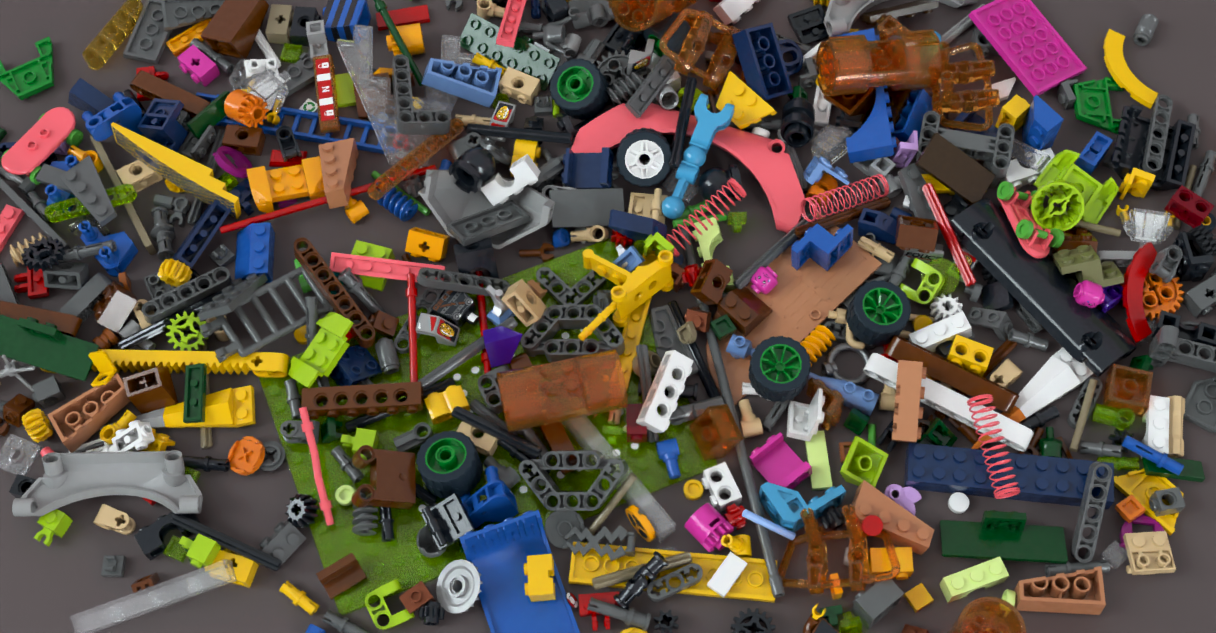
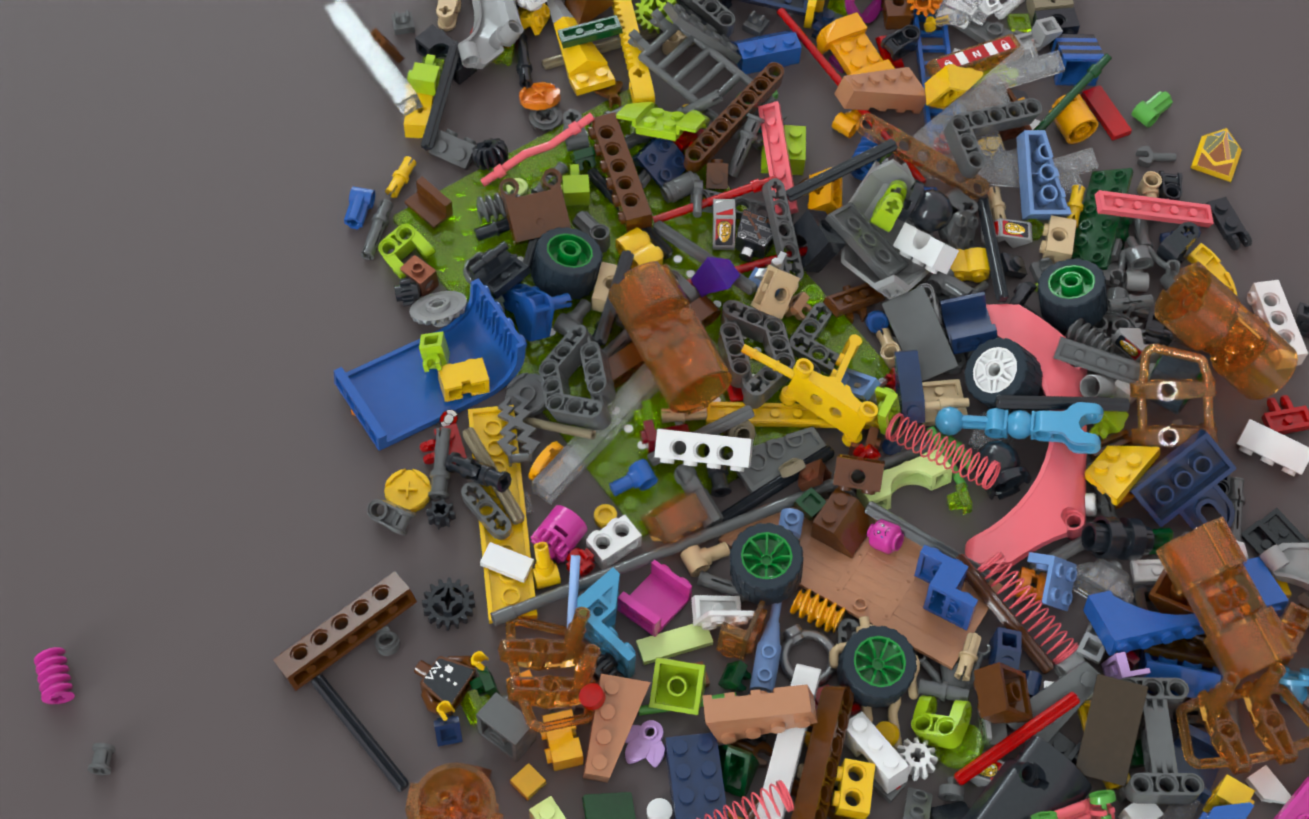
camera: 70 degrees right, 5 degrees down
(263, 393) = (612, 93): none -> reddish brown piece
(356, 116) = (949, 85): none -> yellow slope
(403, 341) = (697, 198): none -> dark grey bar
(420, 220) = (841, 170): none -> black axle
(460, 198) = (889, 206): none -> lime piece
(510, 596) = (434, 351): none -> lime brick
(525, 275) = (815, 294): none -> clear neon green plate
(538, 250) = (853, 299): none -> reddish brown tile
(597, 51) = (1143, 301): none -> dark grey pin

